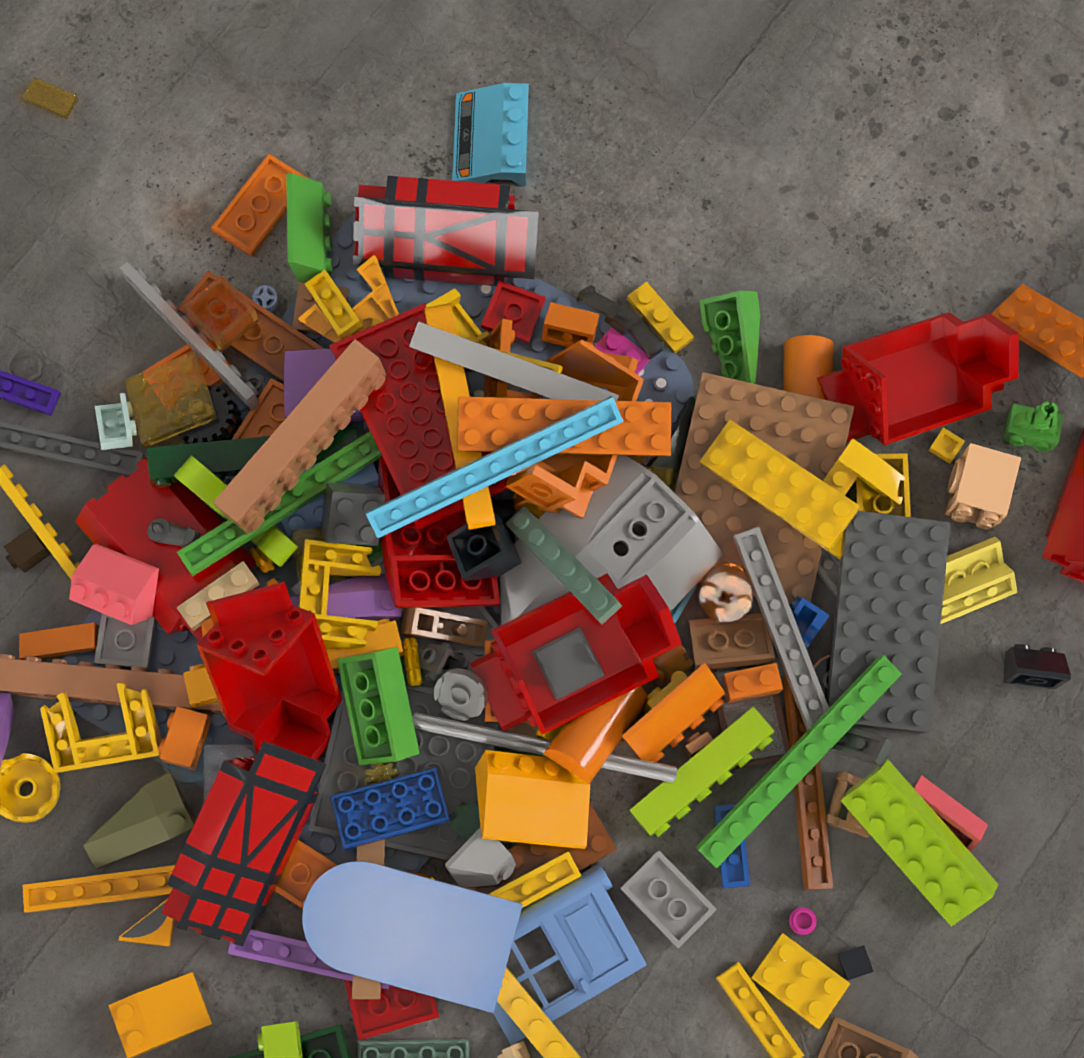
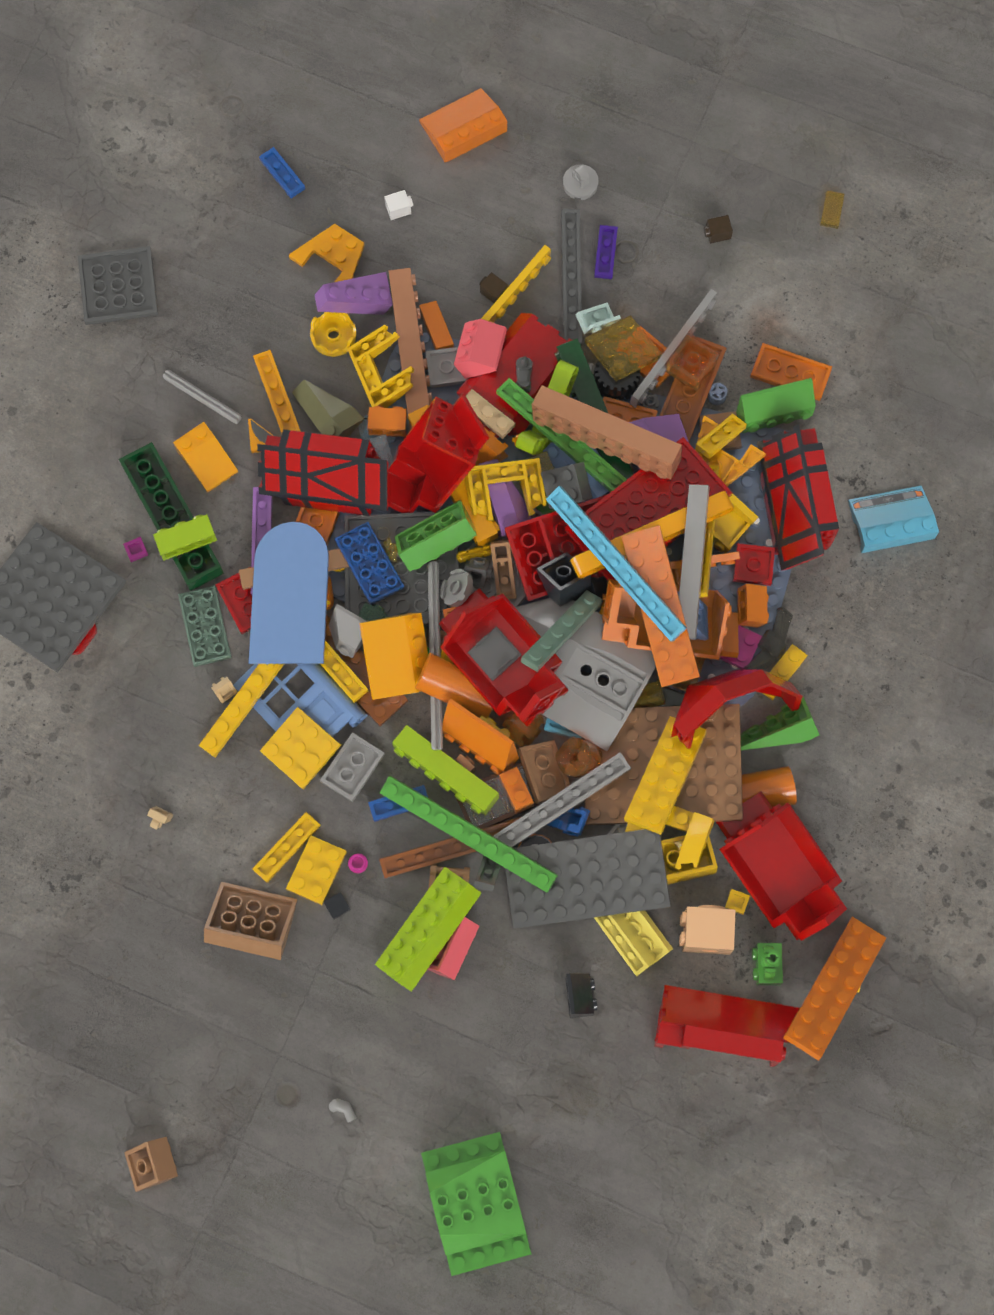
camera: 80 degrees right, 0 degrees up
(34, 240) = (718, 229): none -> dark brown brick
(63, 1002) = (202, 396): none -> light grey axle
(626, 966) = (300, 747): none -> yellow plate
(692, 382) = (707, 696): none -> red panel

